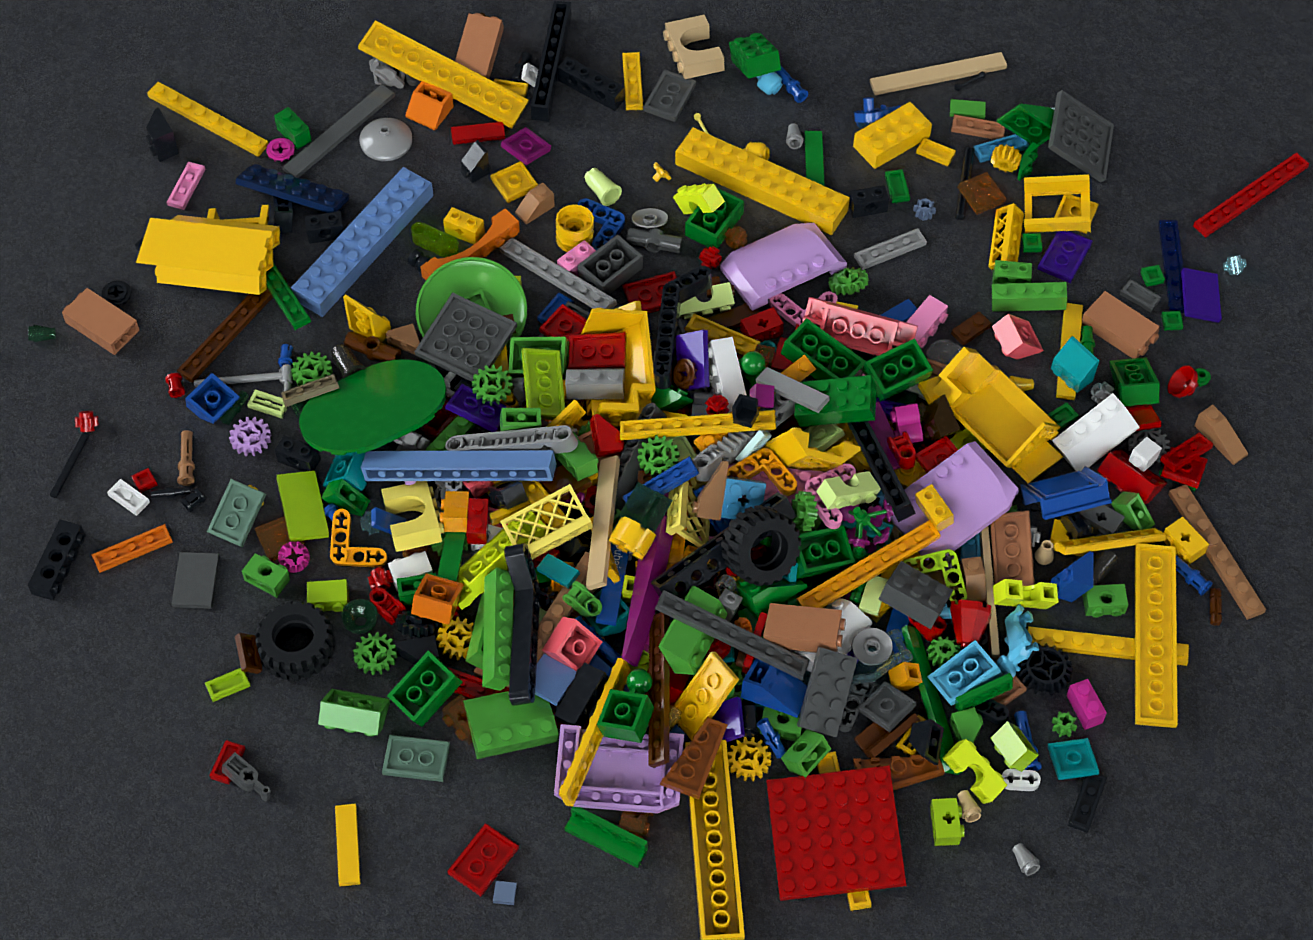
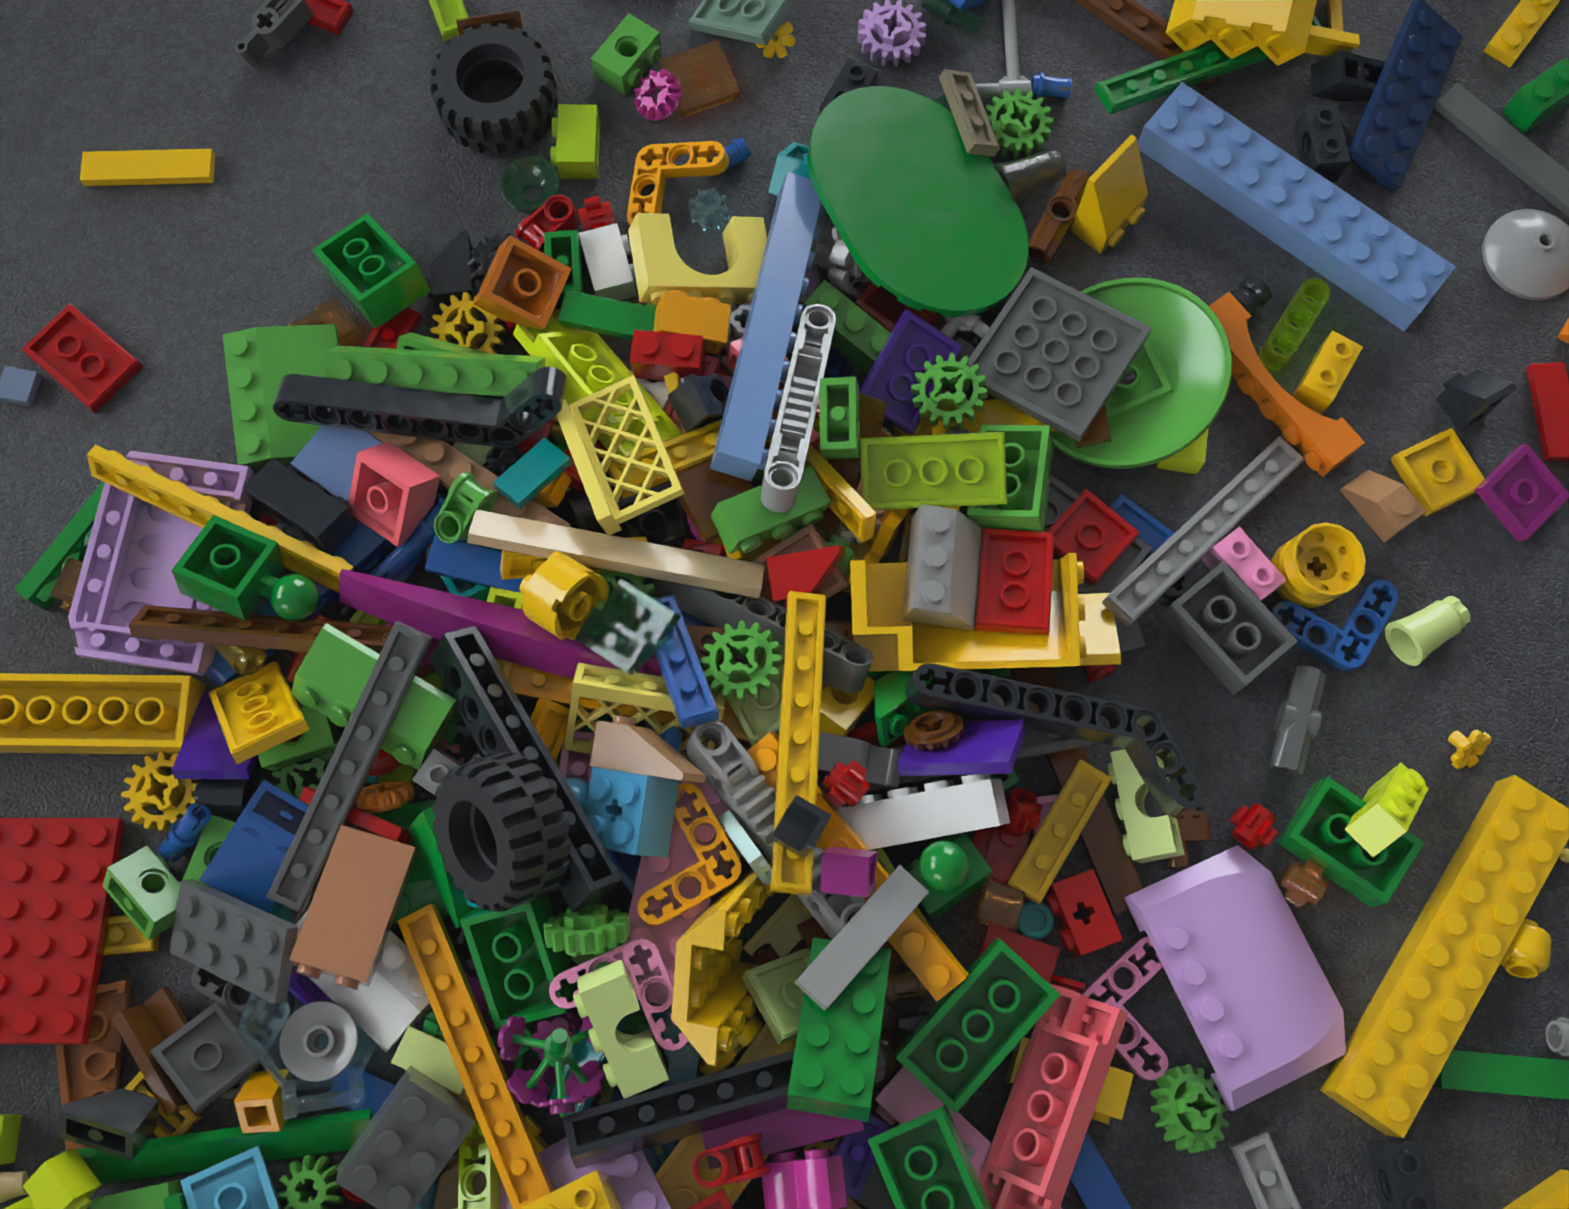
camera: 95 degrees right, 15 degrees up
(267, 406) = (970, 41): yellowish green tile -> none
(274, 146) = (1504, 72): dark pink gear -> none
(302, 506) = (751, 106): lime tile -> none
(345, 497) = (756, 170): green slope -> none
(353, 712) = (365, 173): slope -> none
(368, 649) = (458, 204): bright green gear -> none
(382, 520) = (698, 228): blue tile -> none
(403, 338) = (1081, 266): medium nougat slope -> none
(416, 758) = (274, 267): sand green tile -> none
(648, 291) = (1178, 696): red tile -> none
(649, 218) = (1350, 715): light grey dish -> none
(694, 765) = (133, 684): dark orange wing -> none

